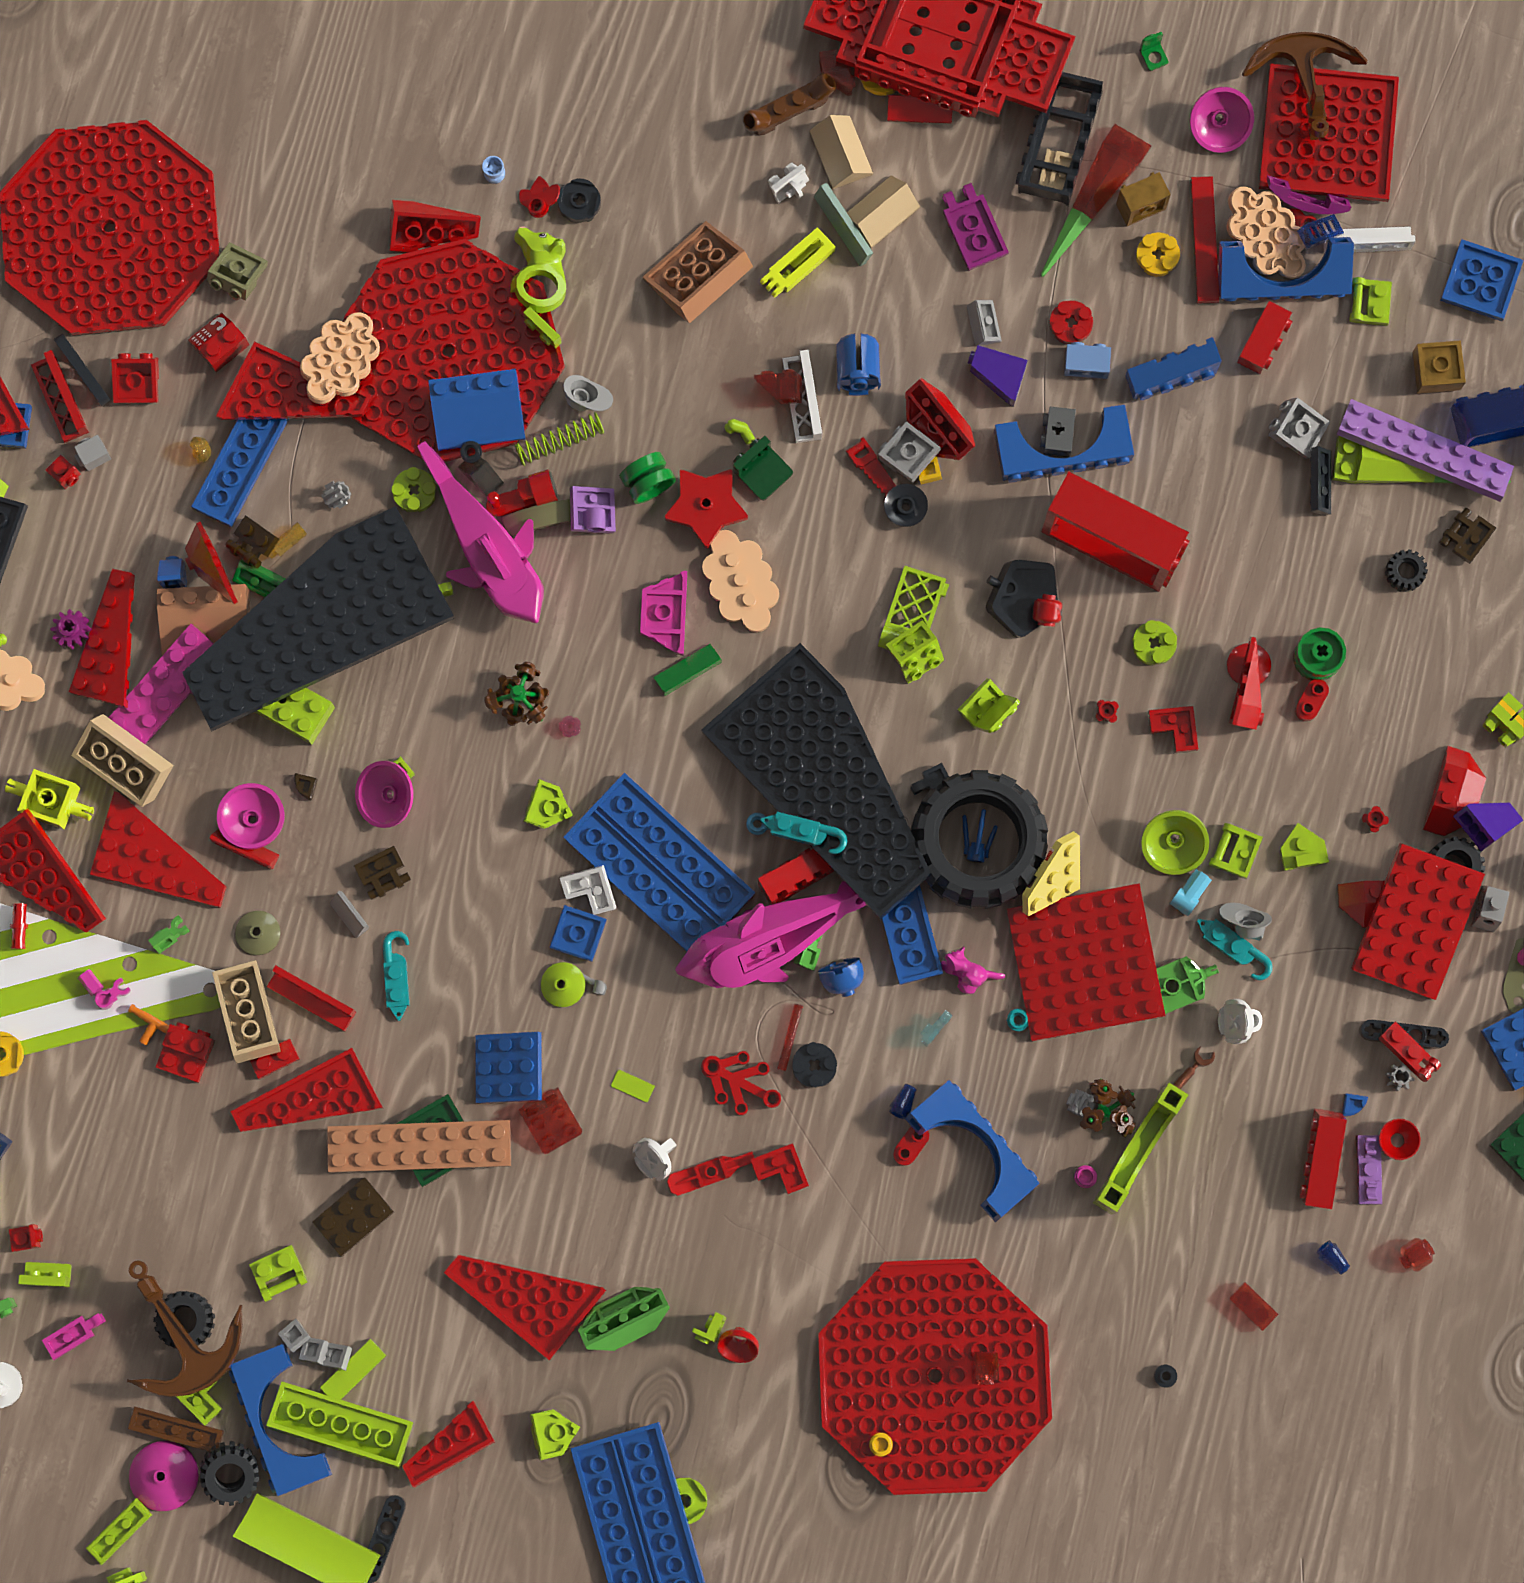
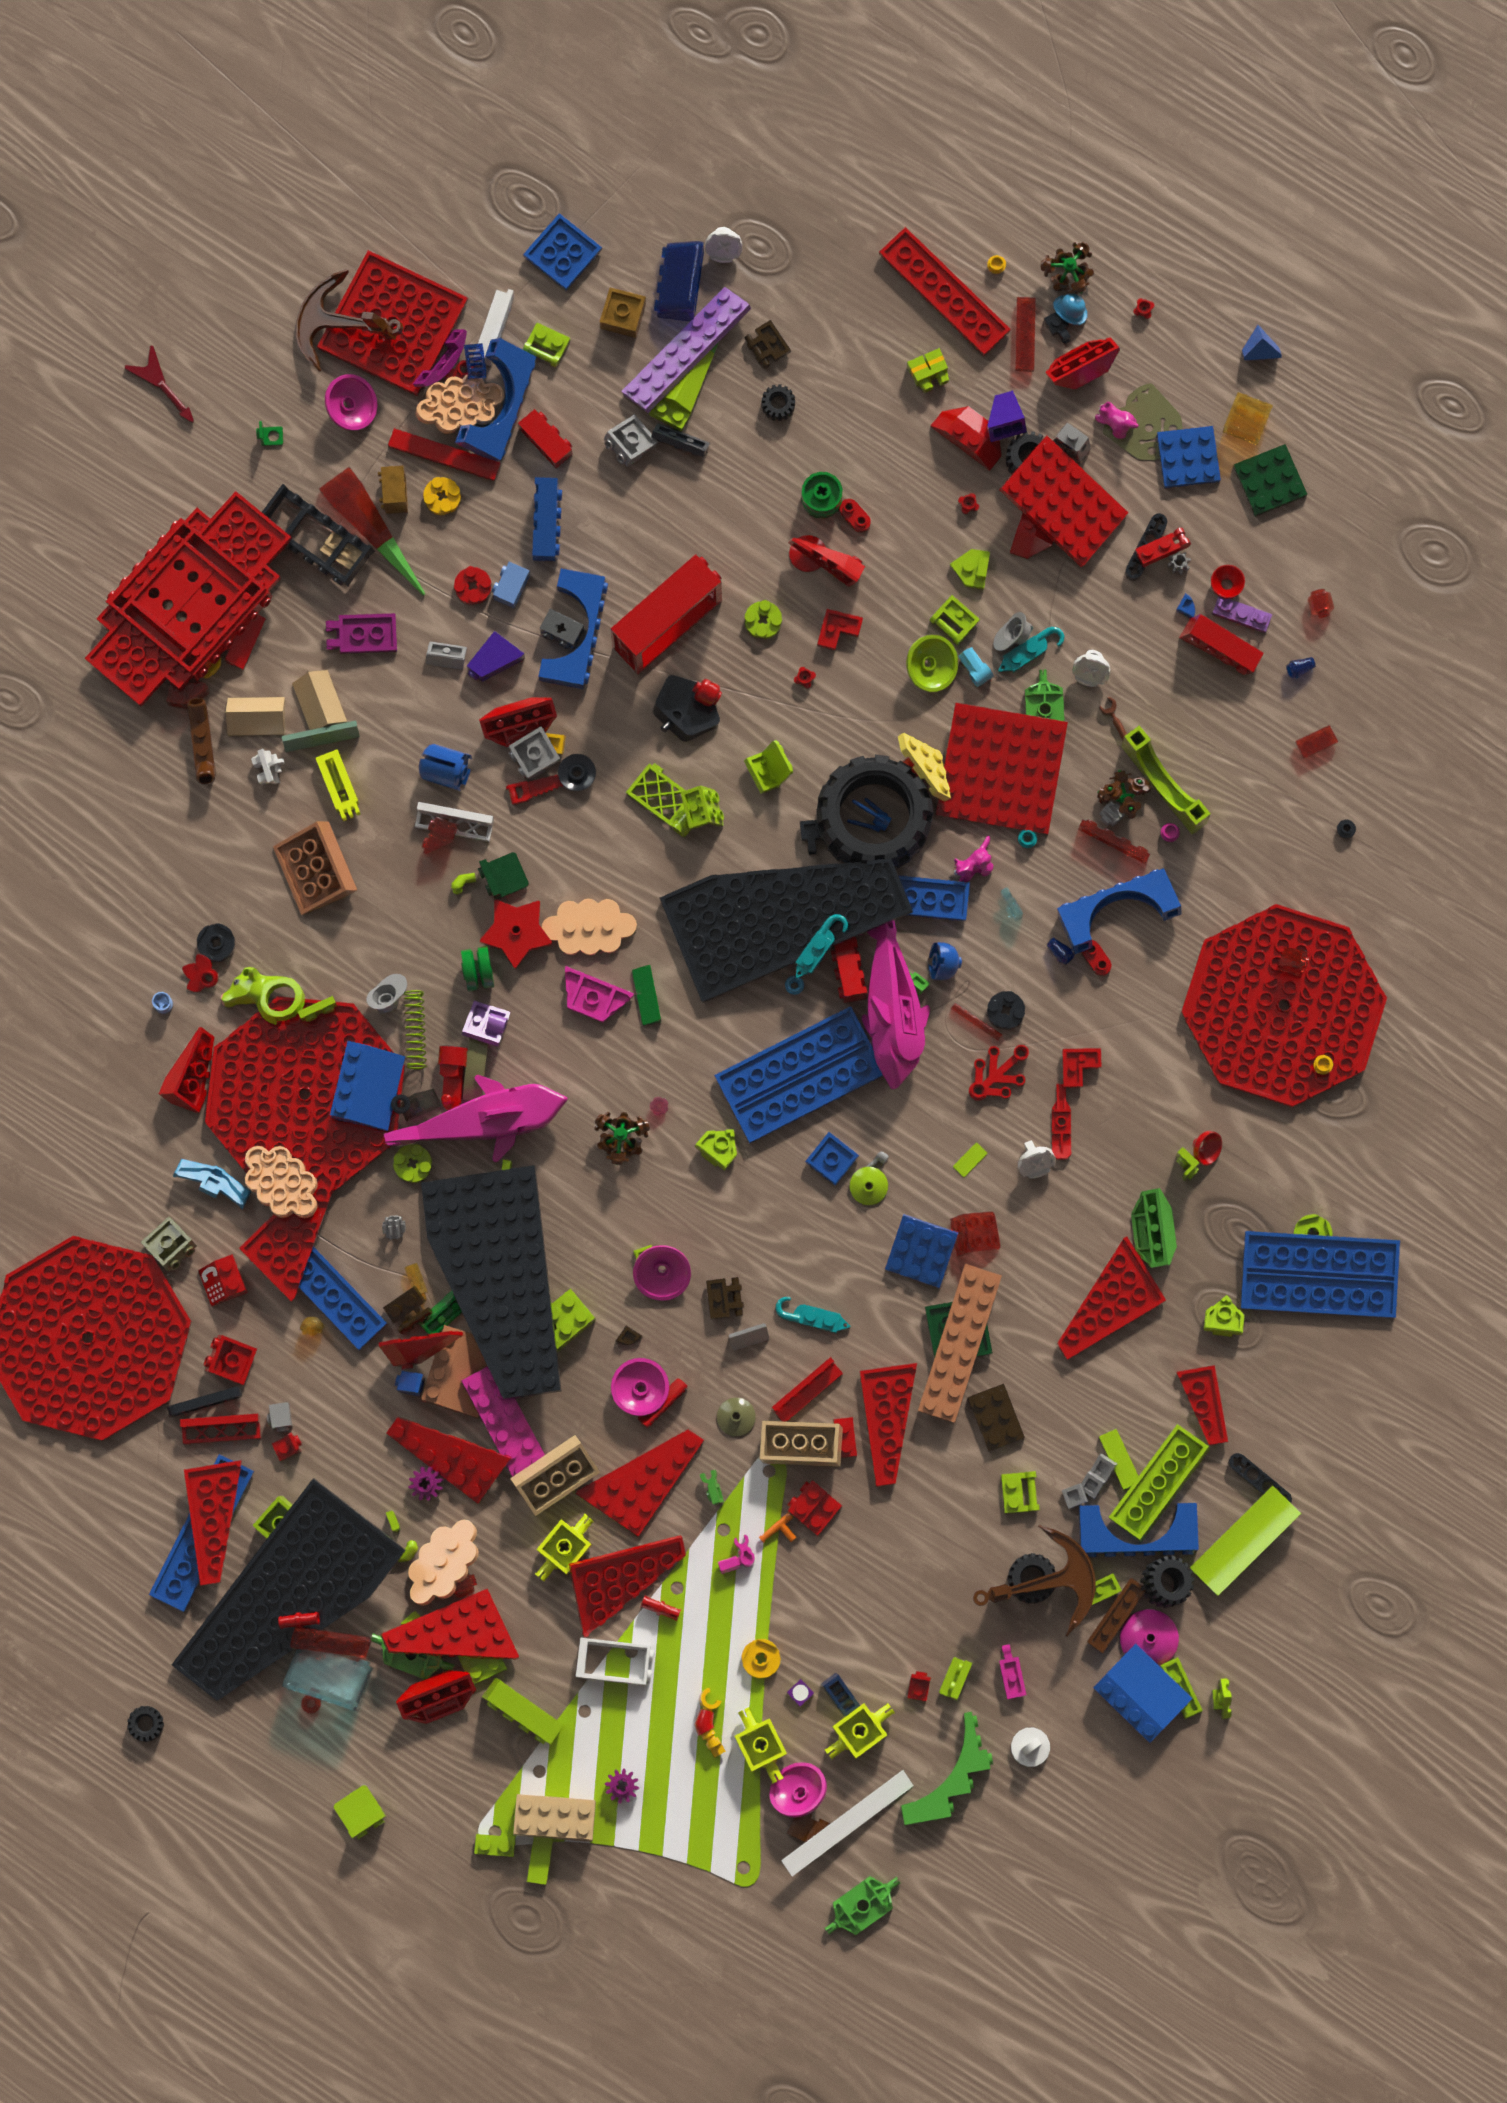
camera: 70 degrees left, 0 degrees up
(19, 610) = (393, 1521): none -> lime tile
(95, 1489) = (1142, 1693): none -> blue slope
(321, 290) = (213, 1180): none -> plate
(594, 884) = (795, 1132): white plate -> none
(1052, 1108) = (1121, 844): none -> clear red plate

